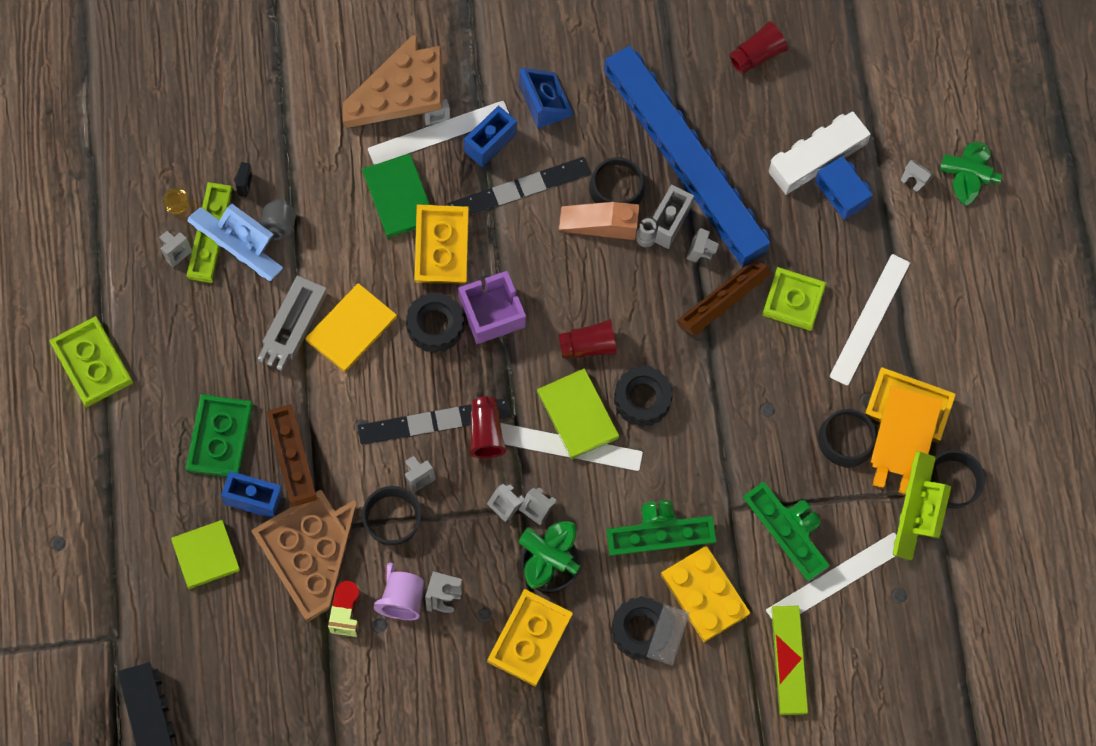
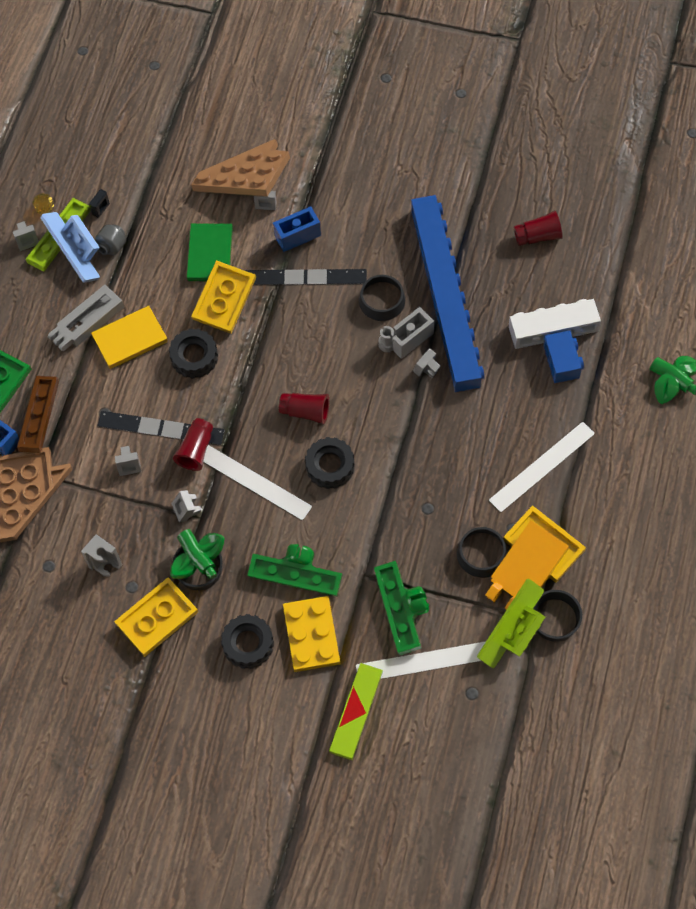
camera: 30 degrees right, 5 degrees down
(342, 612) = (24, 543): leg -> none
(389, 491) = (84, 469): black tyre -> none
(401, 596) = (69, 547): lavender hat -> none
(431, 135) = (241, 217): white sticker -> none
(492, 313) = (239, 360): medium lavender piece -> none
(537, 505) = (208, 518): light grey tile -> none
(544, 96) = (354, 213): blue slope -> none
(577, 414) = (273, 459): lime tile -> none
(601, 219) = (357, 319): nougat slope -> none
(668, 634) = (263, 652): clear tile -> none
(724, 297) = (434, 407): reddish brown plate -> none
(794, 299) = (486, 429): lime tile -> none
(919, 172) = (631, 365): light grey tile -> none

